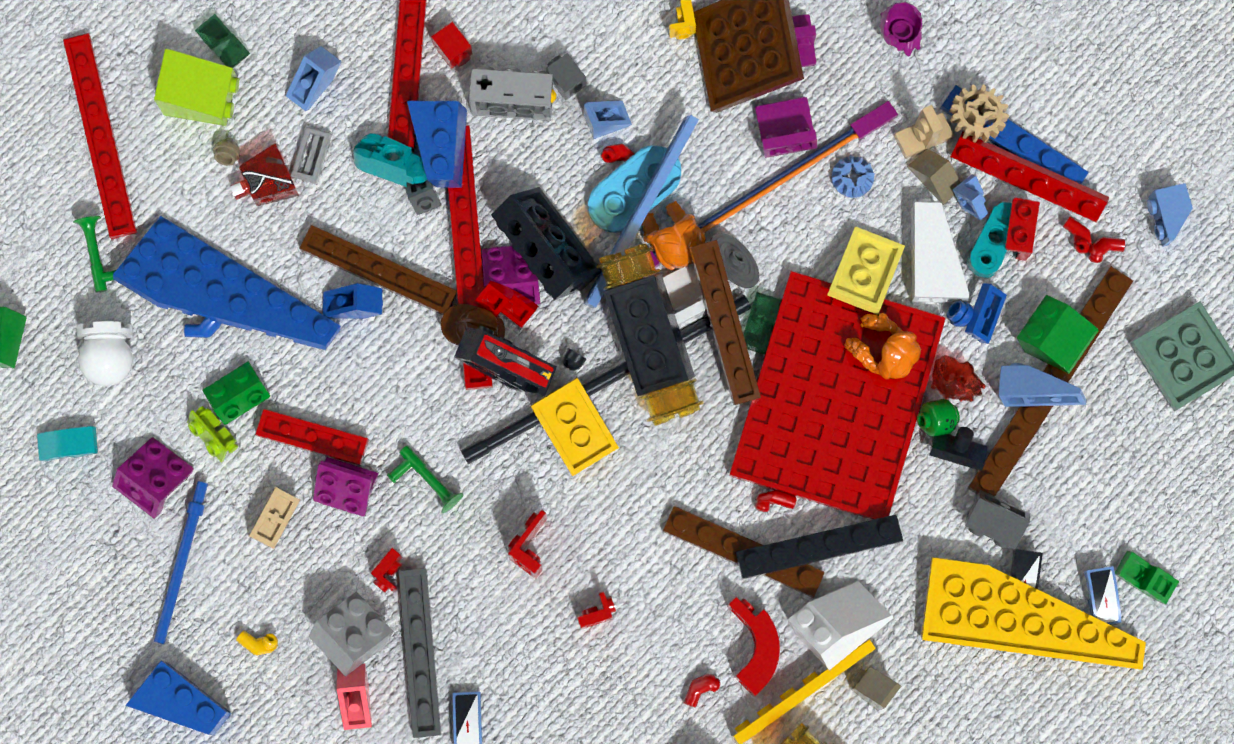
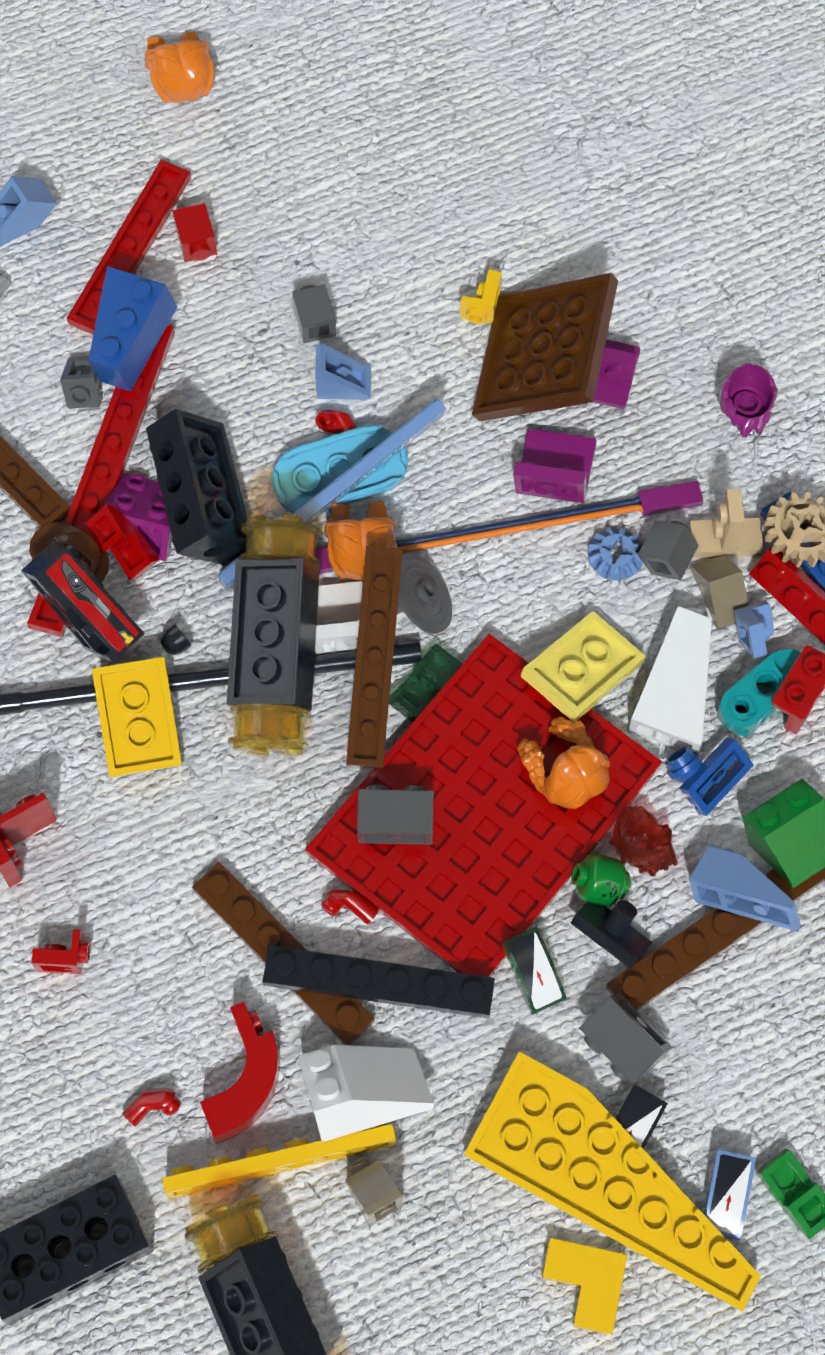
camera: 25 degrees right, 10 degrees down
(388, 160) = (57, 329): teal piece -> none
(512, 93) = (237, 306): light grey piece -> none
(784, 428) = (395, 815): none -> dark grey brick
(890, 161) = (668, 549): none -> dark grey brick
(918, 497) = (534, 970): none -> slope
(1039, 683) = (596, 1273): none -> yellow tile

